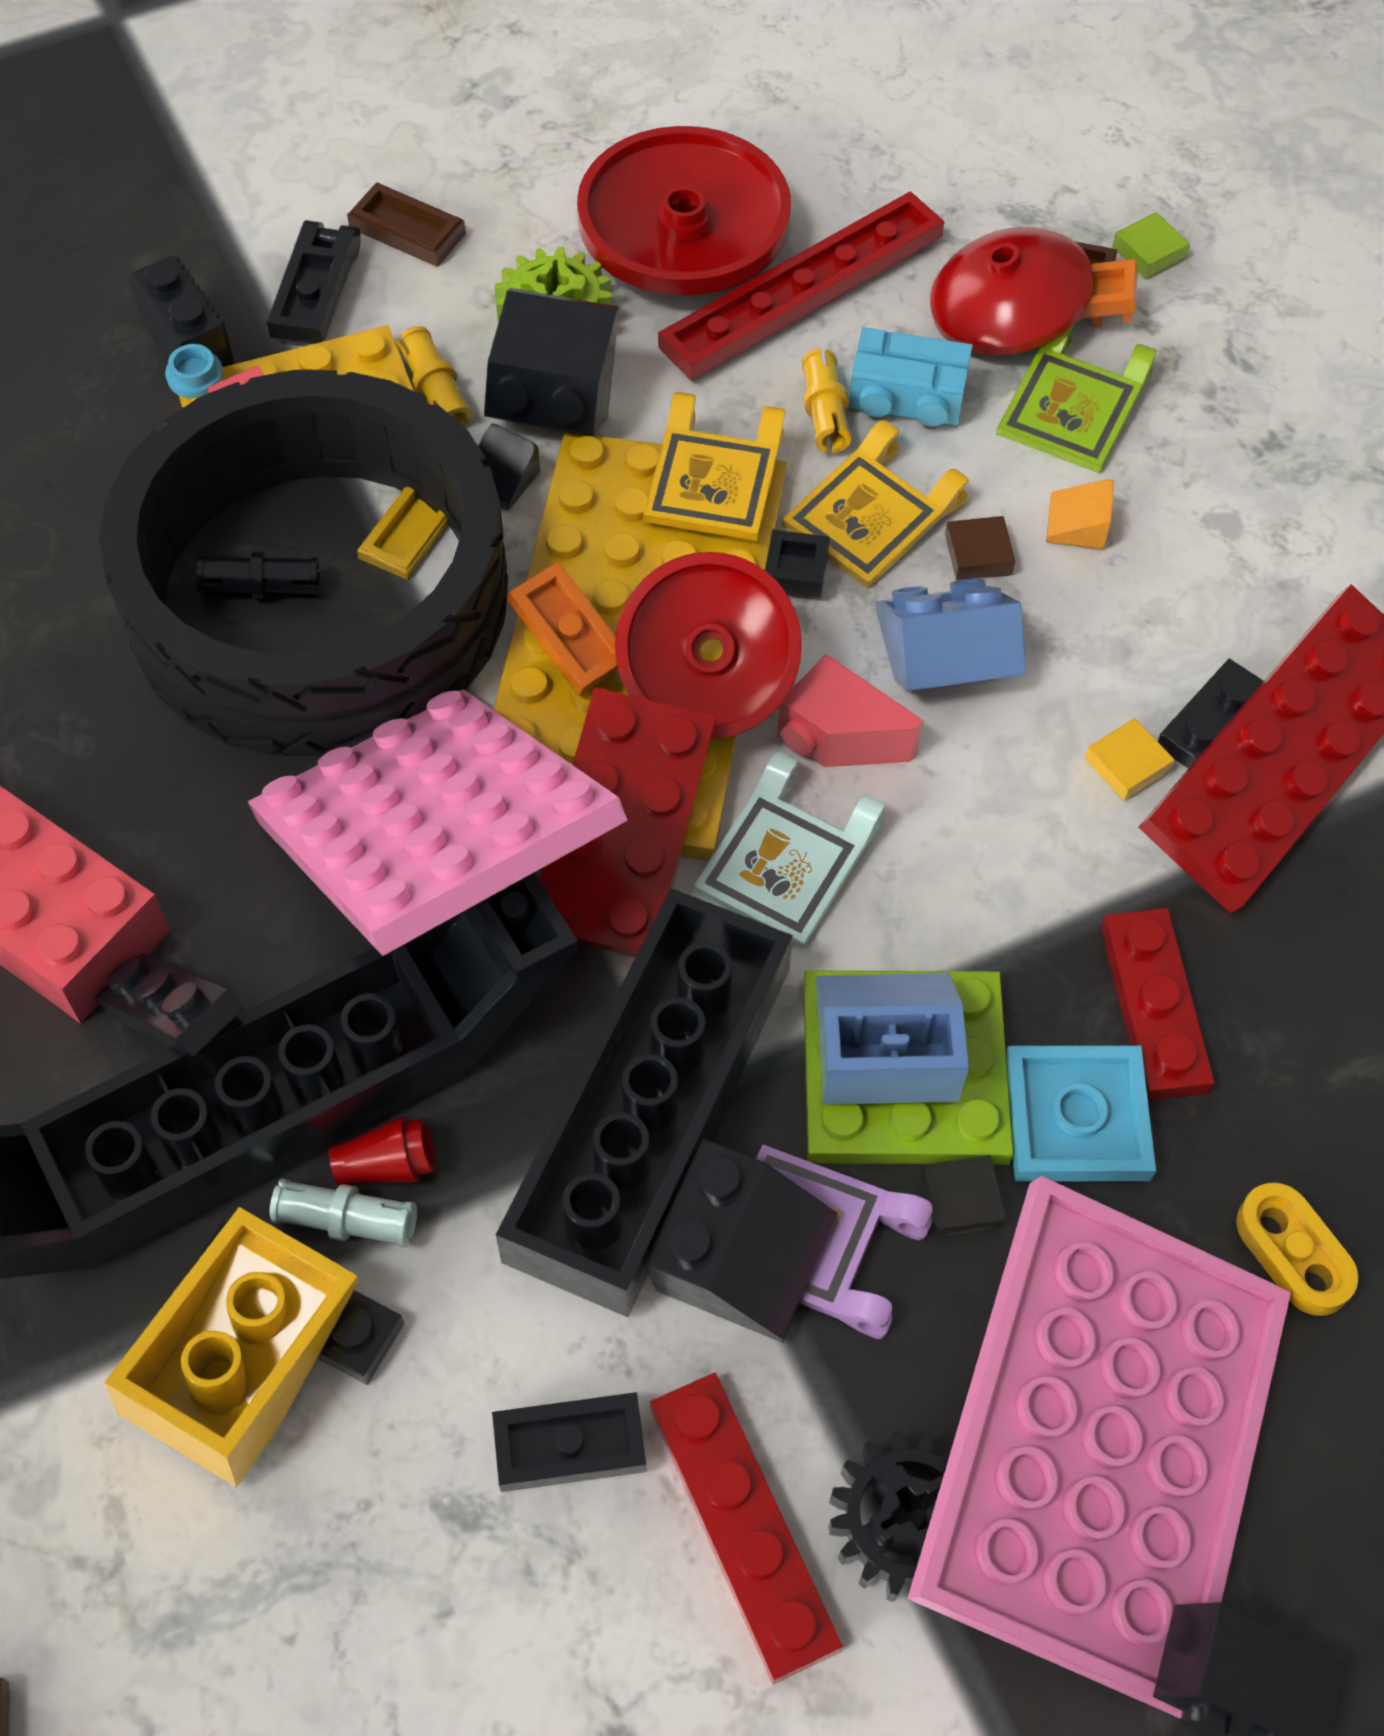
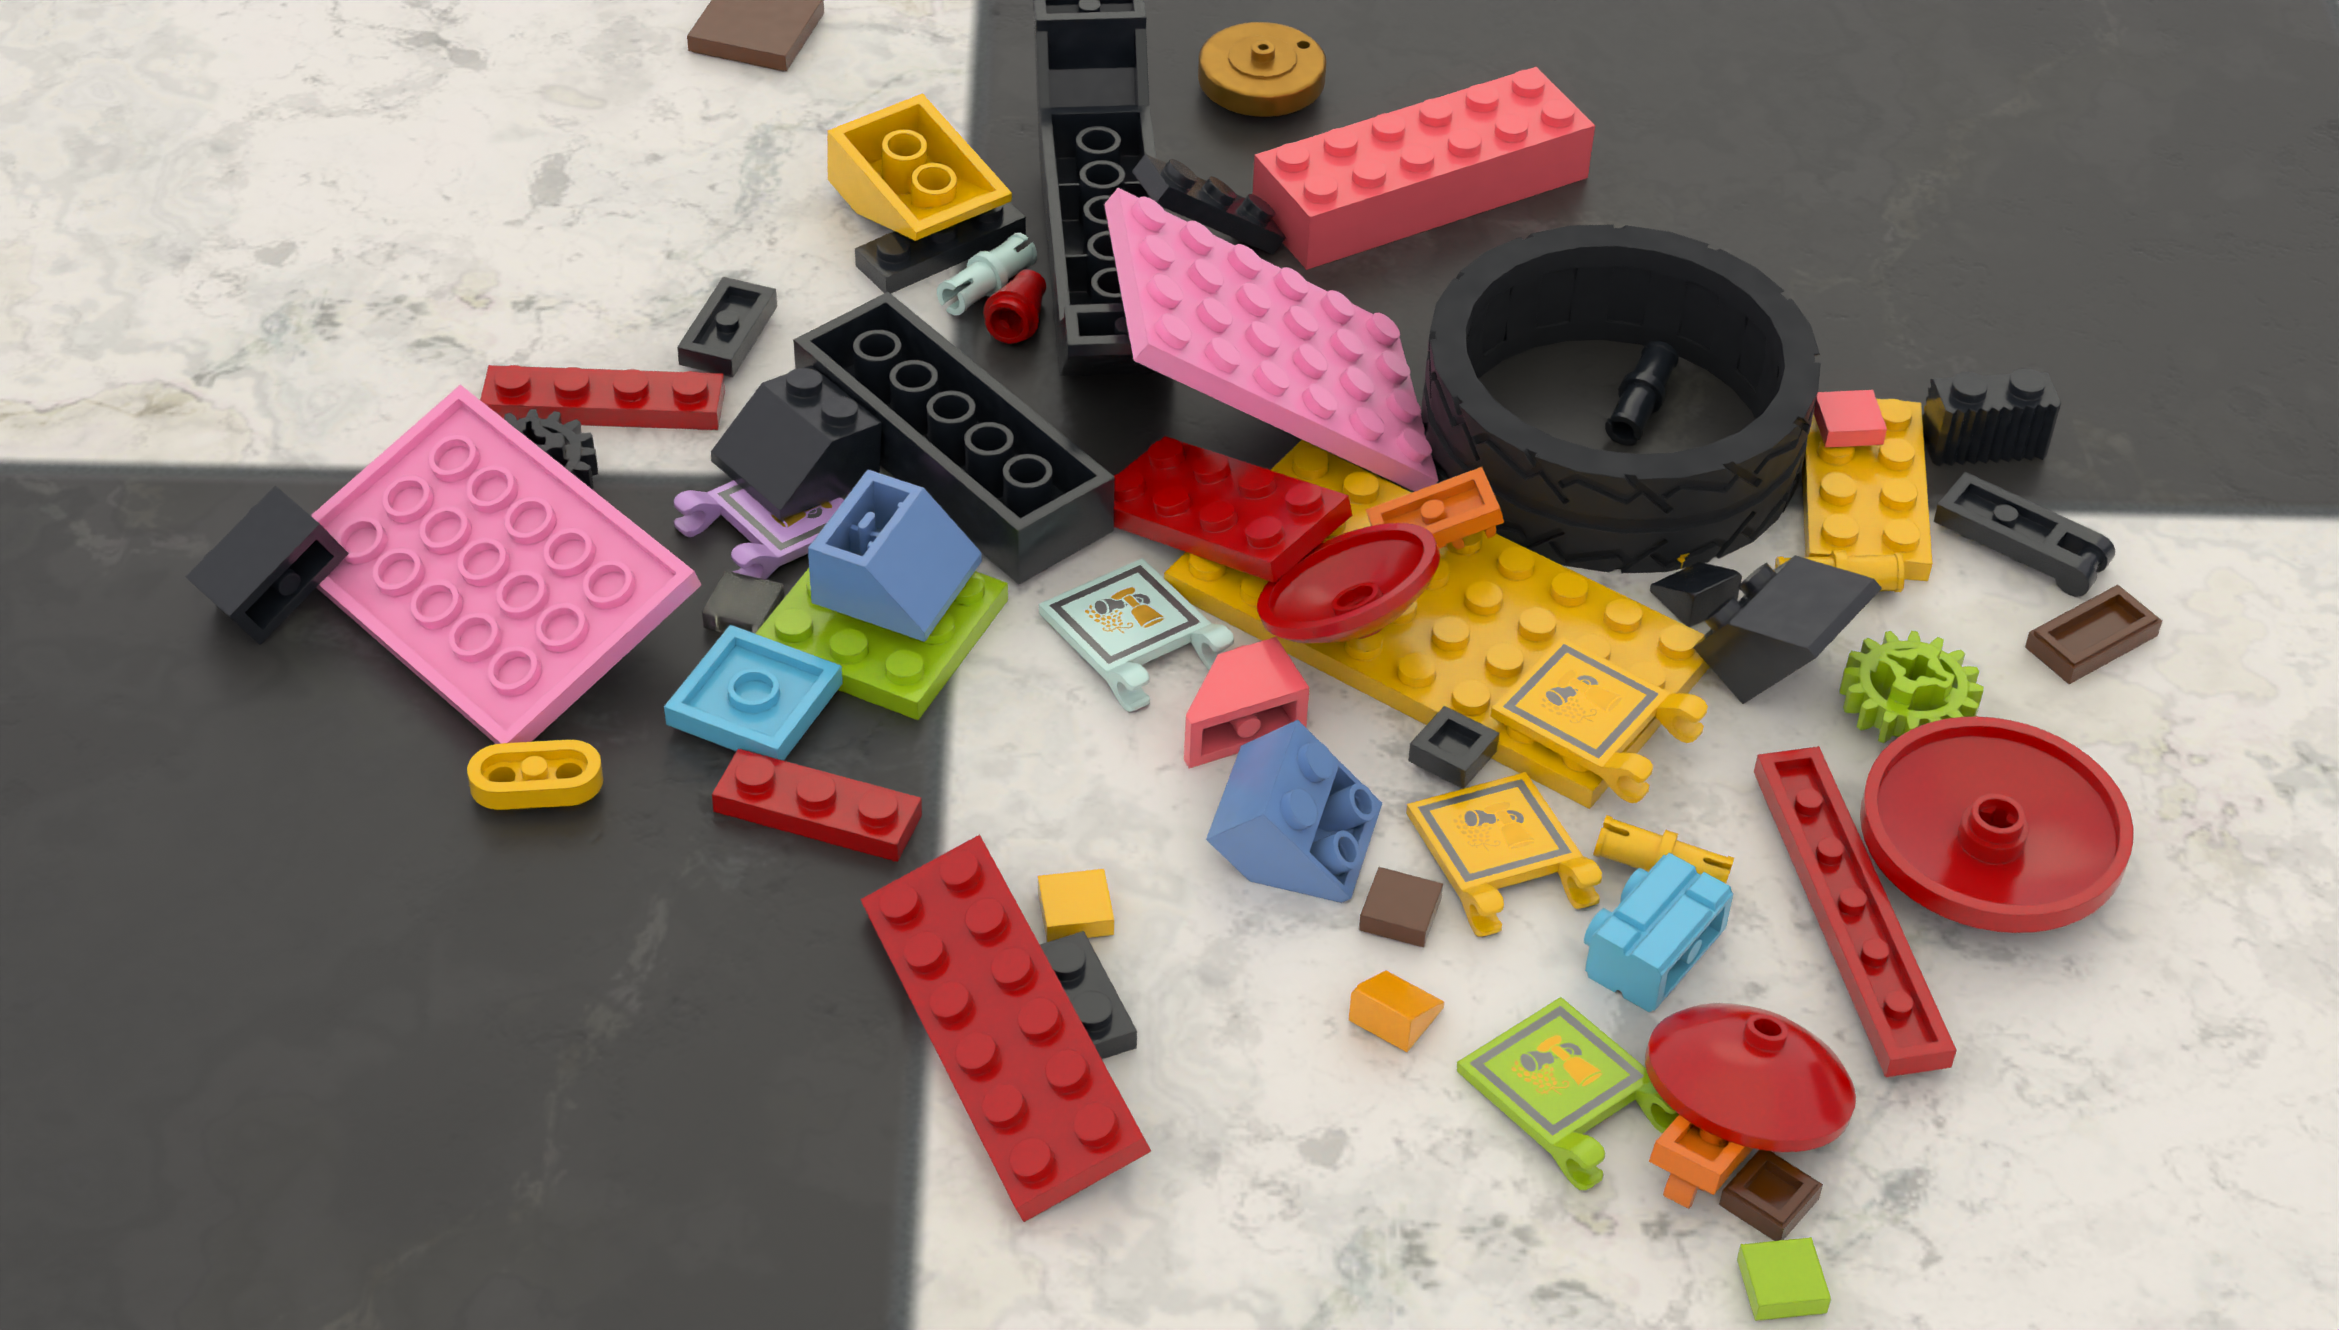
camera: 115 degrees right, 15 degrees down
(193, 370) = (1902, 390): medium azure plate -> none

